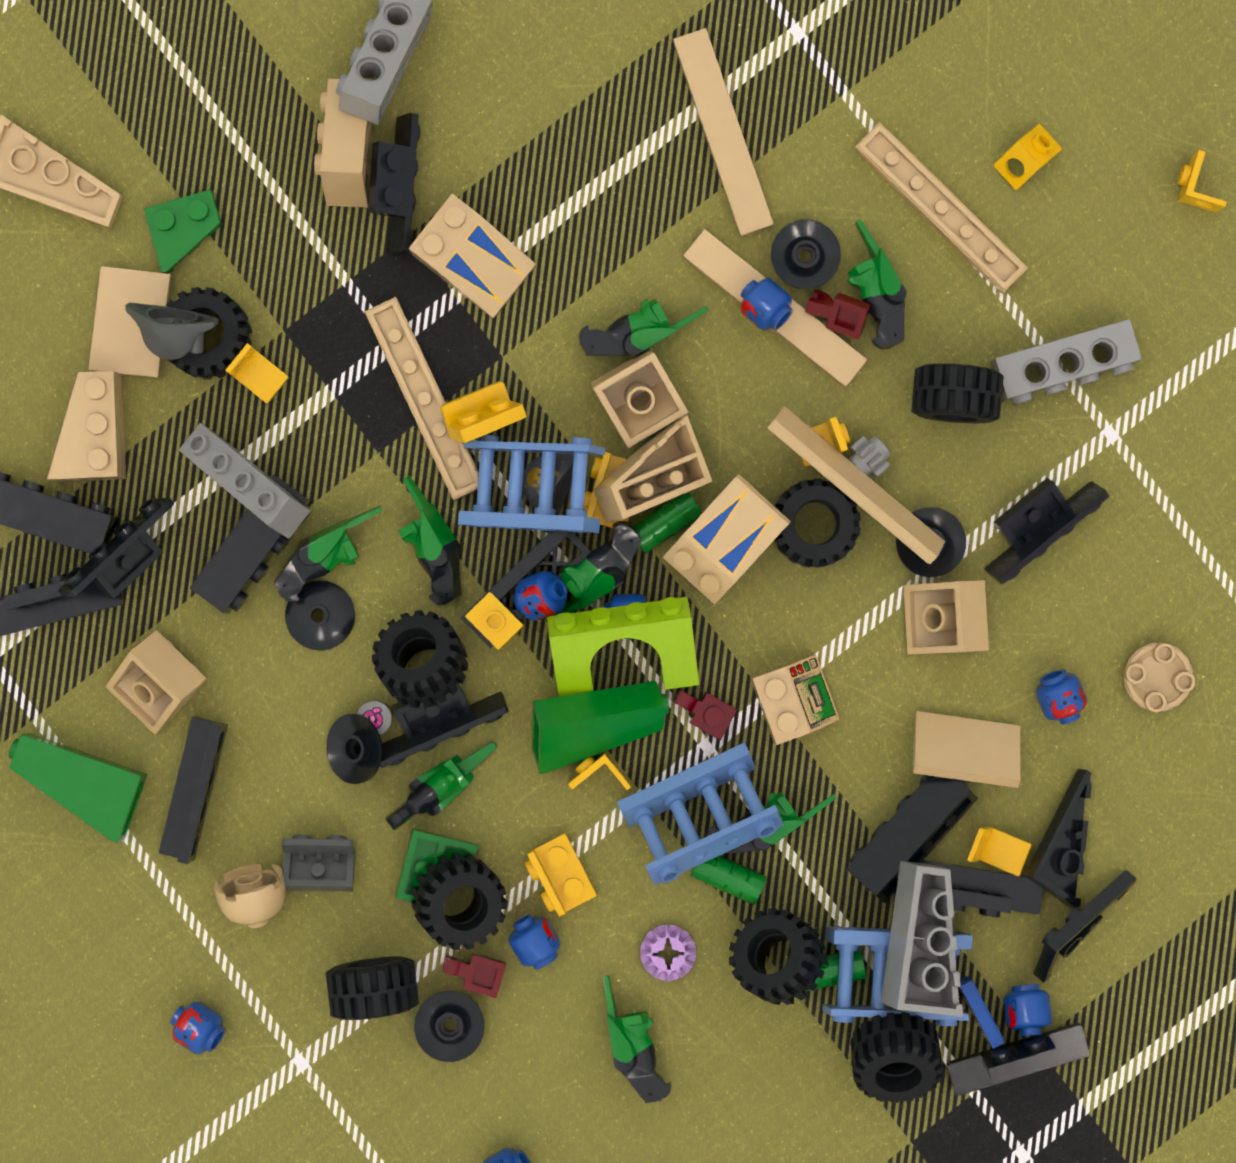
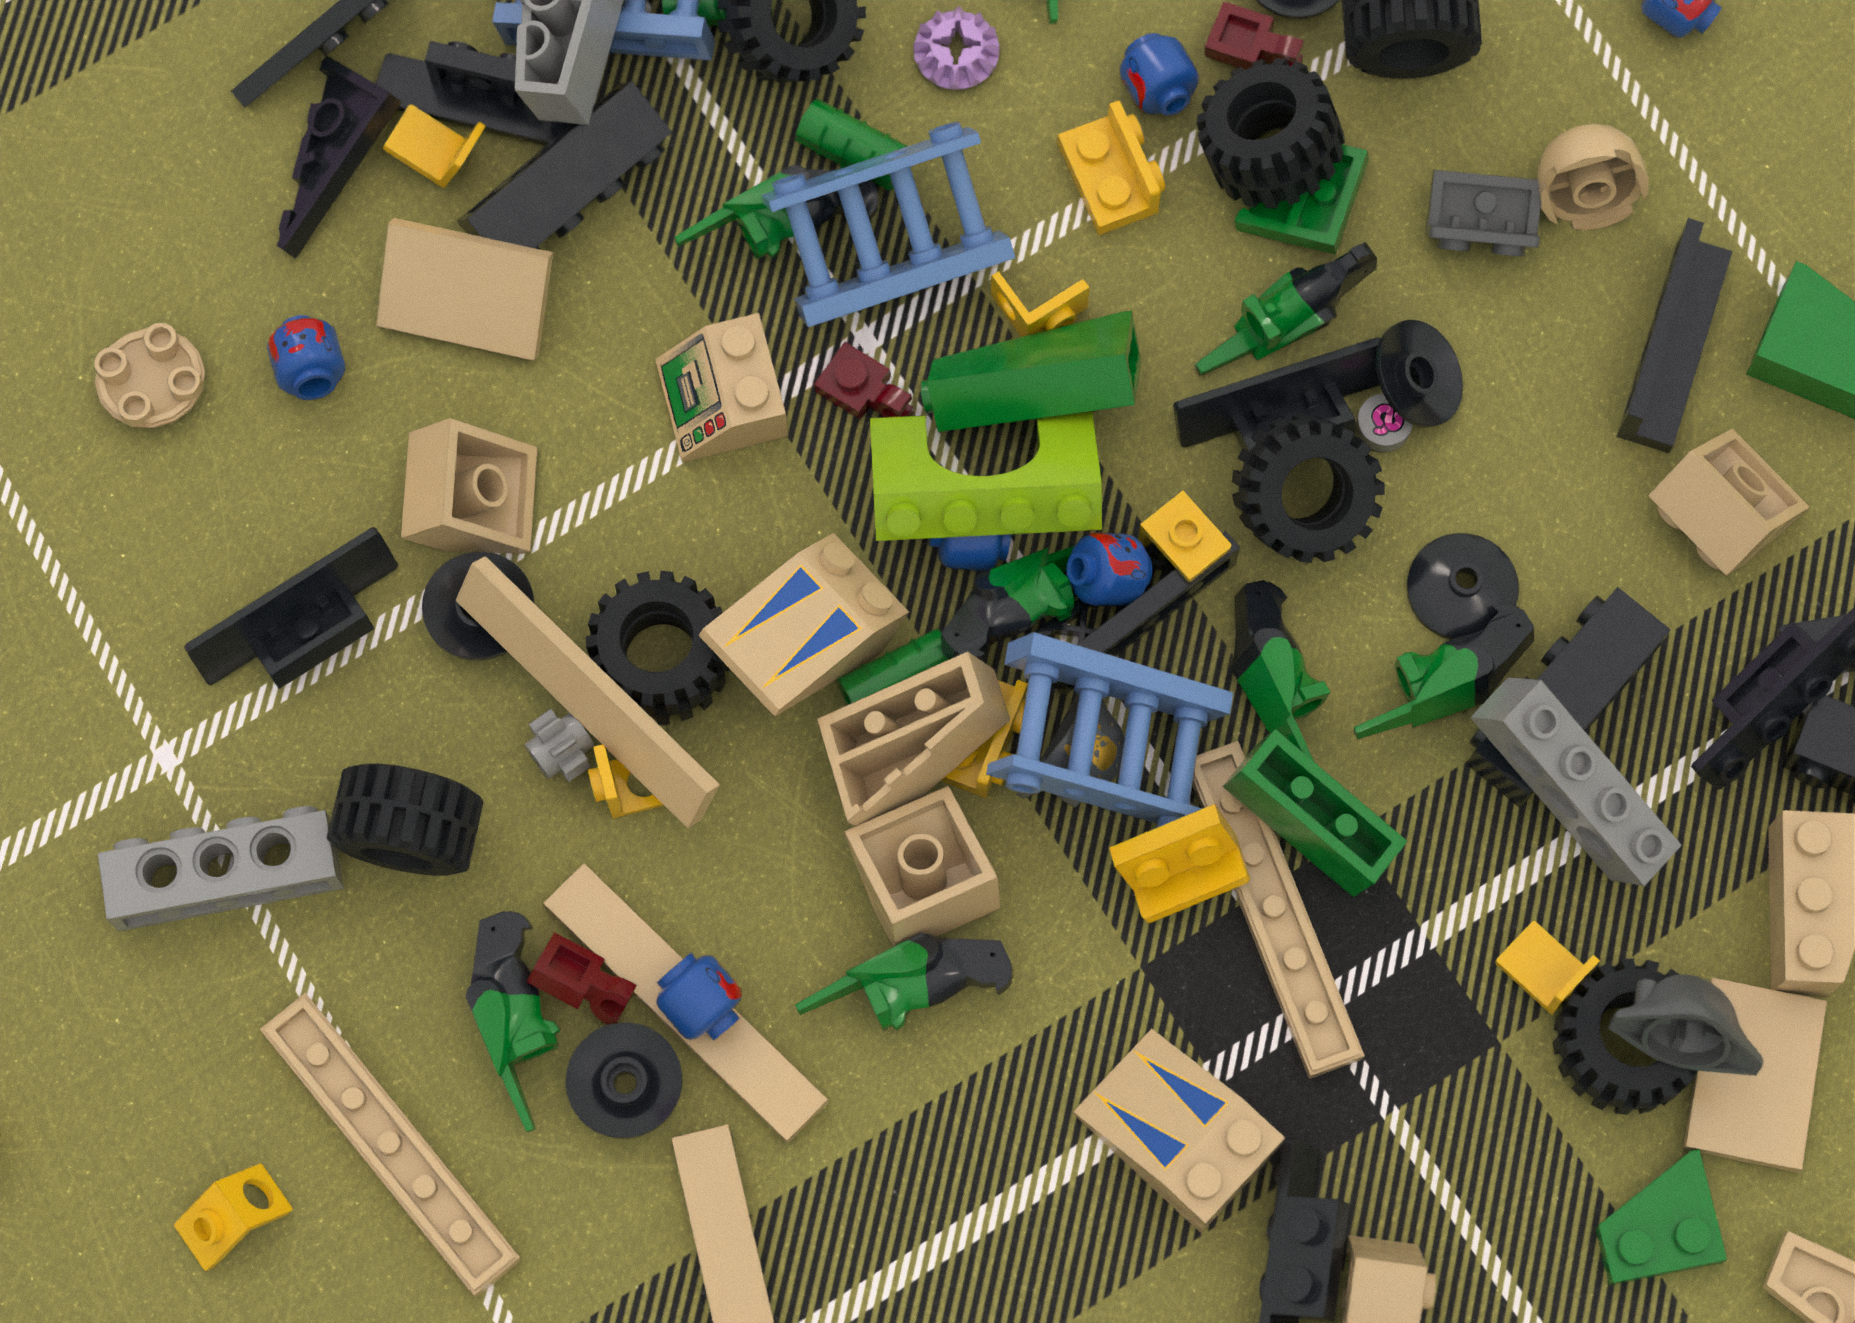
camera: 170 degrees left, 15 degrees down
(402, 450) = (1315, 813): none -> green brick

